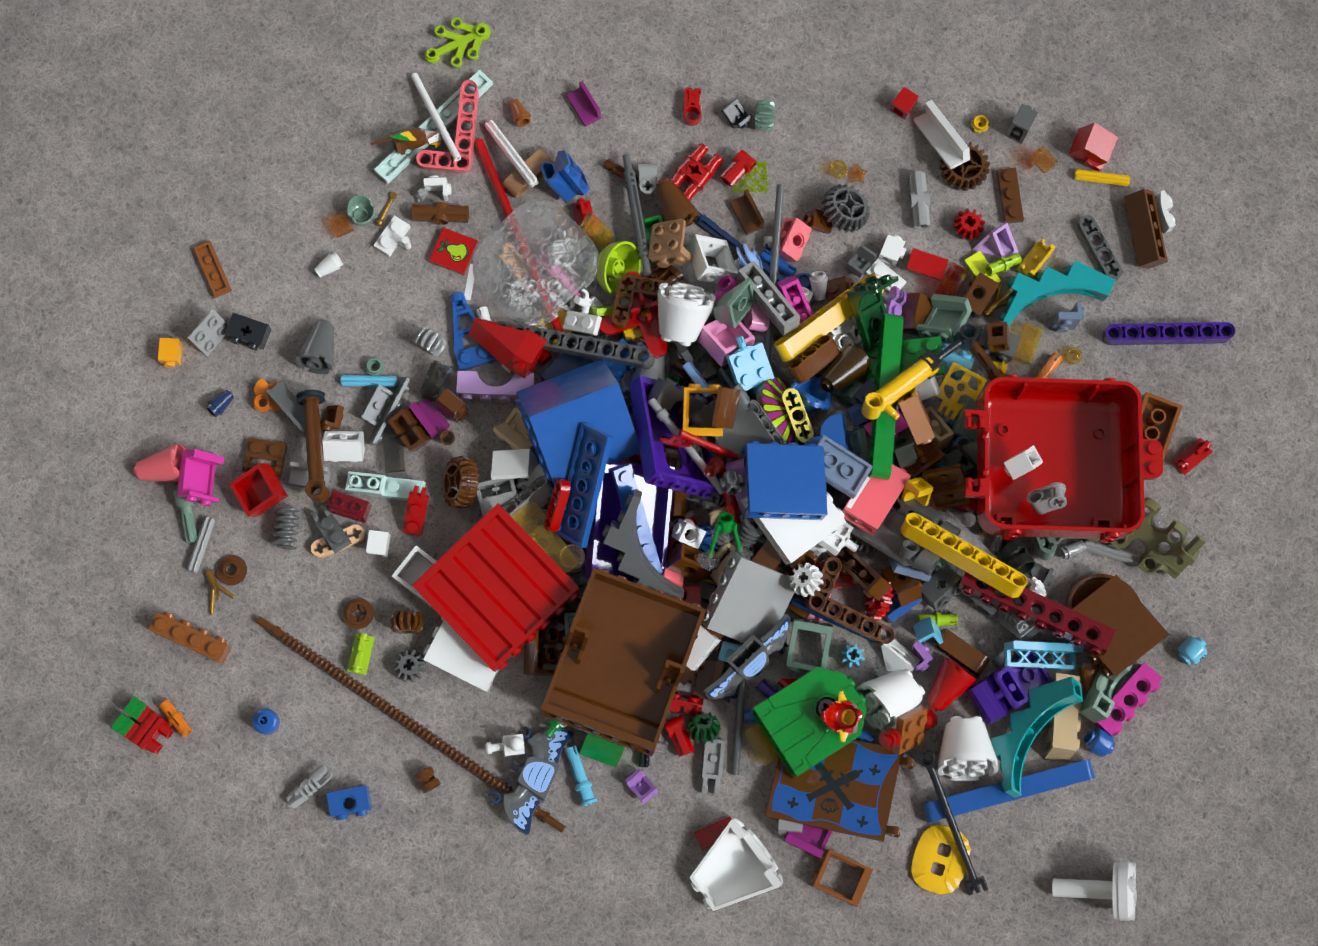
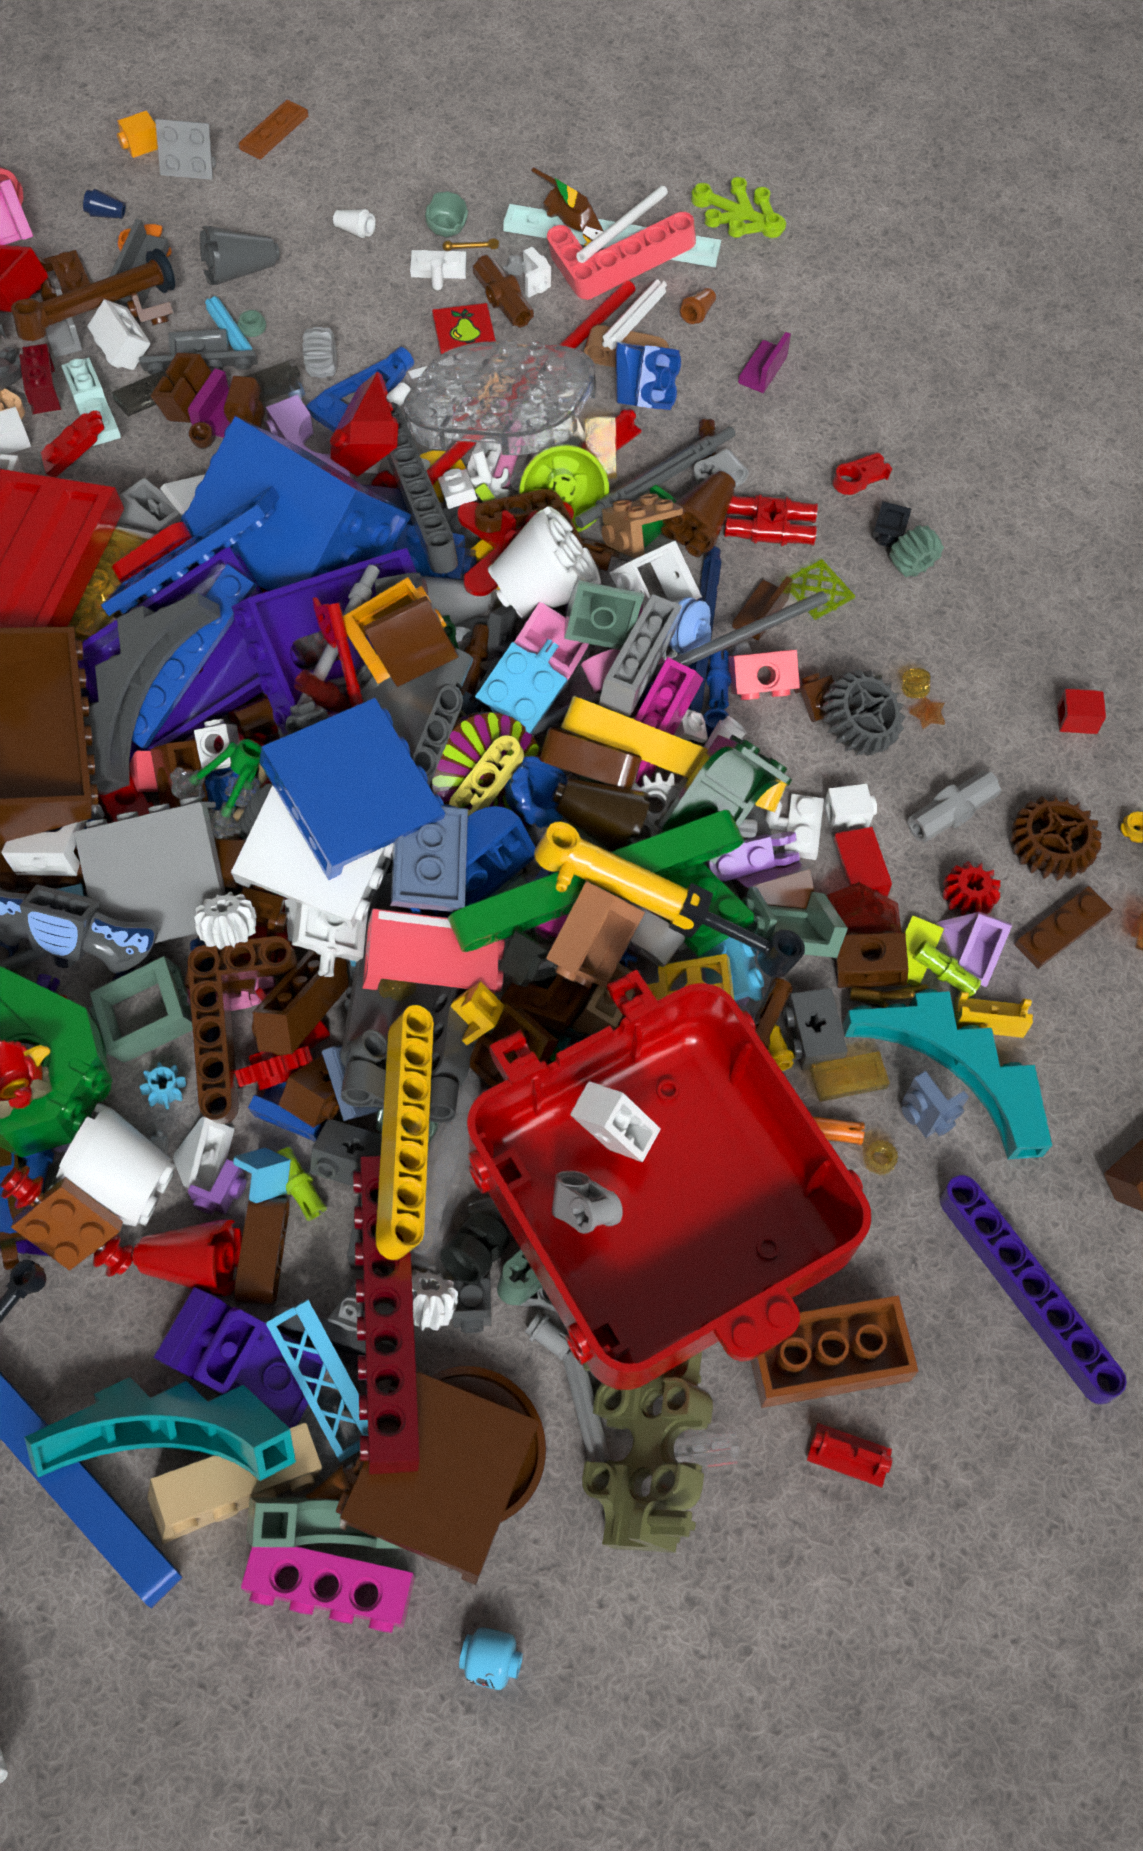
camera: 60 degrees right, 15 degrees down
(239, 324) = (213, 188): black brick -> none
(341, 225) = (413, 210): clear orange plate -> none
(460, 482) = (142, 460): reddish brown gear -> none
(696, 376) = (471, 637): medium blue tile -> none
(741, 164) = (825, 563): red piece -> none
(861, 261) = (805, 779): dark grey bracket -> none
(942, 136) = (1070, 778): white panel -> none
(966, 750) = (82, 1340): white cone -> none
(998, 336) = (820, 1008): reddish brown brick -> none
(1097, 249) = (1084, 1100): dark grey beam -> none
(1099, 742) = (220, 1577): blue head -> none

